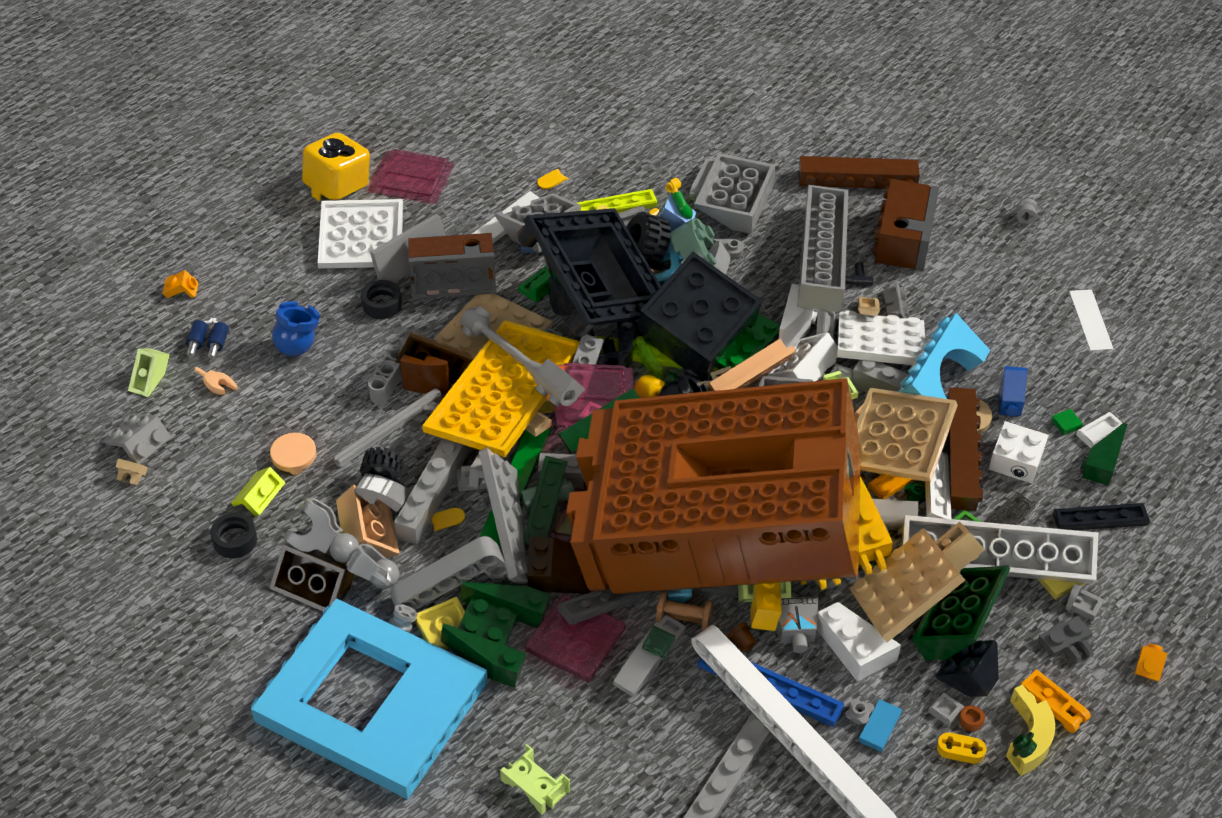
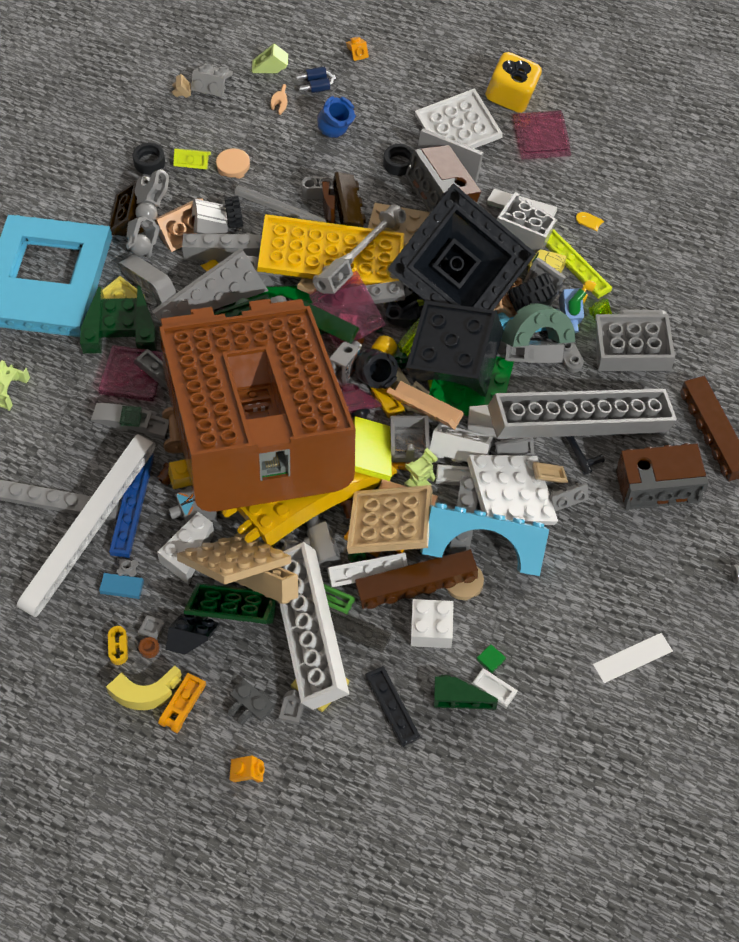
camera: 70 degrees right, 10 degrees up
(403, 617) = (114, 269): light grey wheel -> none
(1012, 391) = (495, 603): blue slope -> none
(1024, 745) = (114, 678): dark green plate -> none

